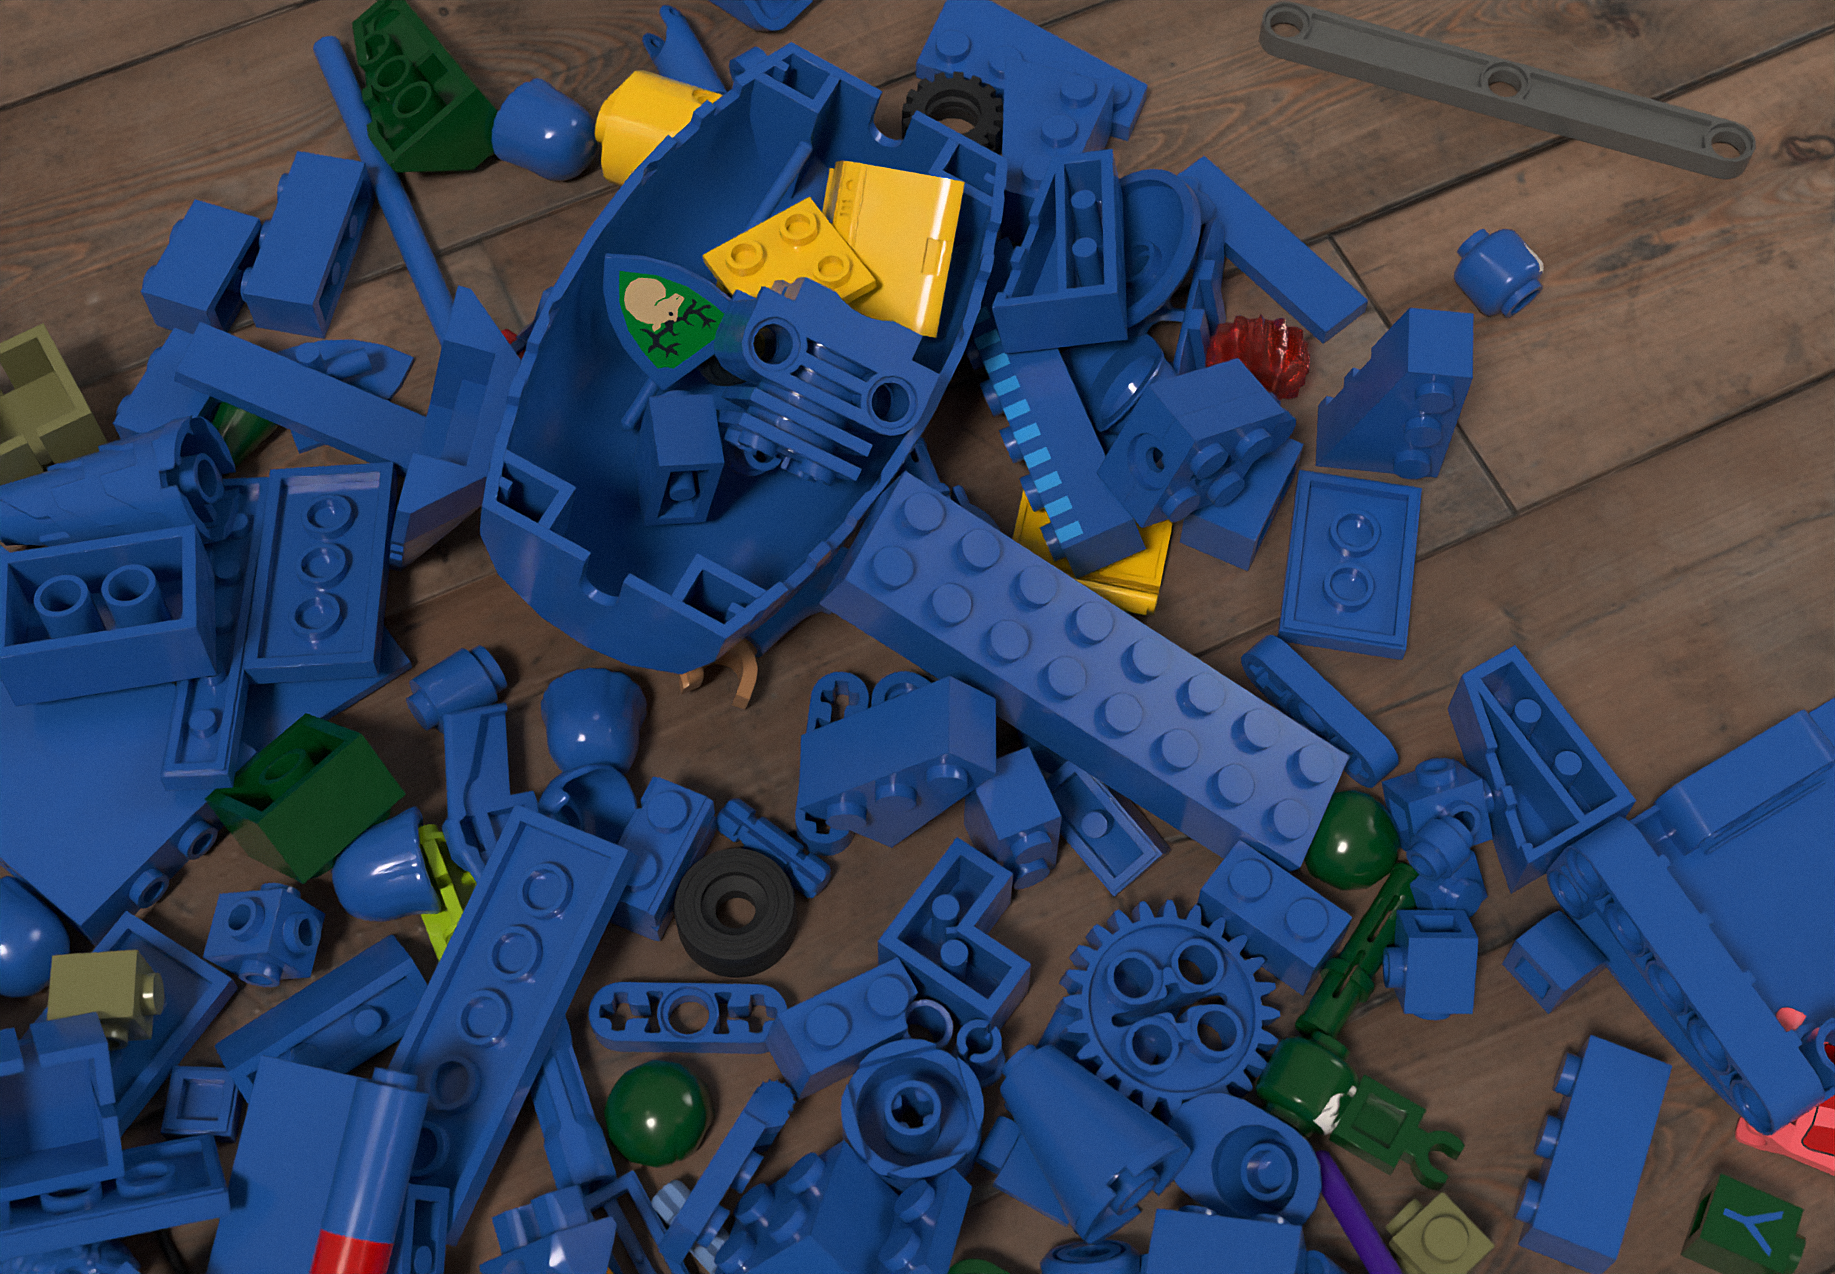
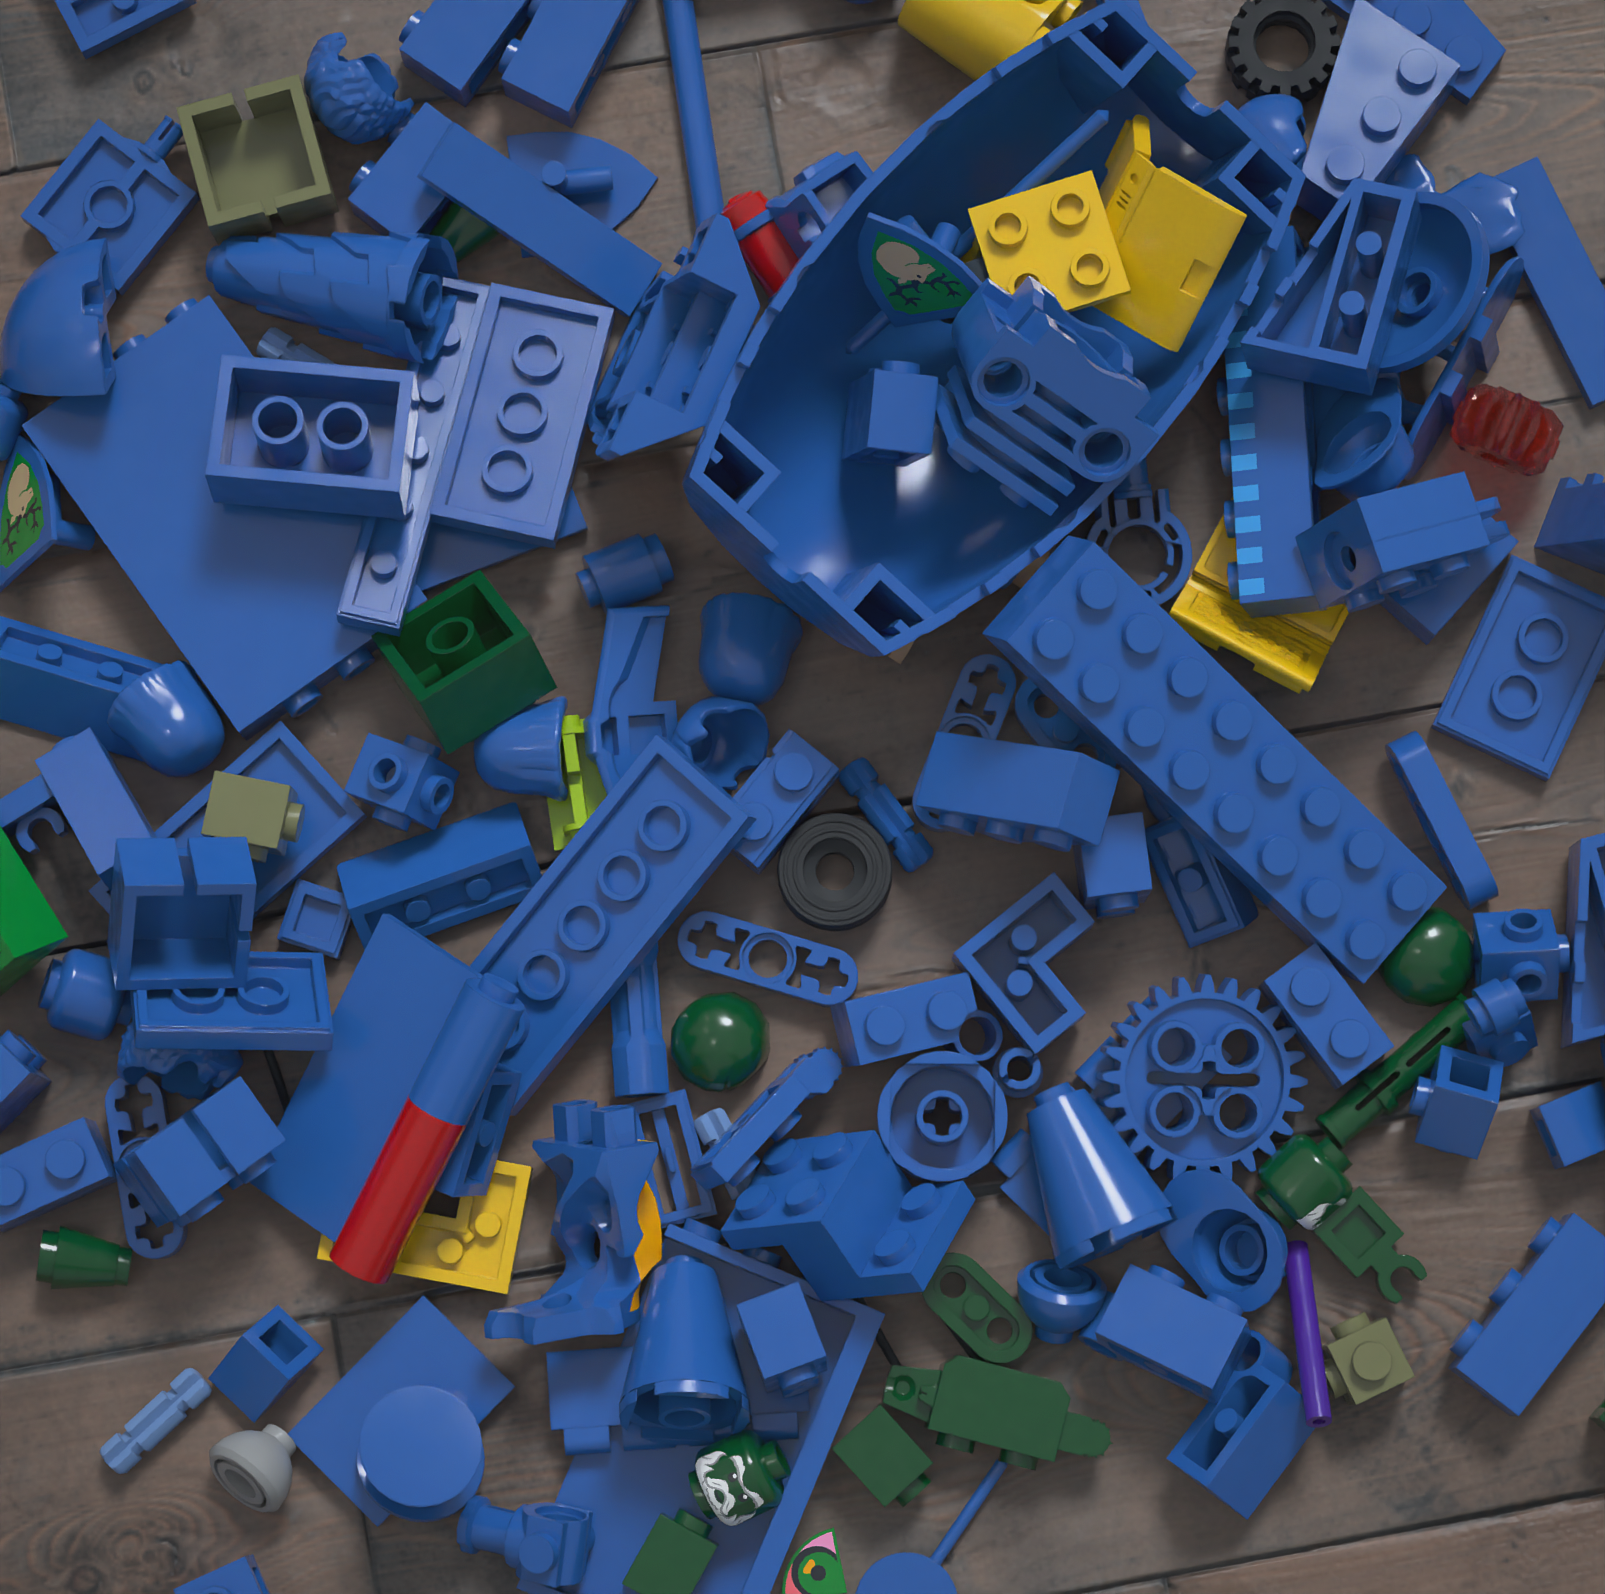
camera: 20 degrees right, 20 degrees up
(103, 338) = (352, 95): none -> blue hair

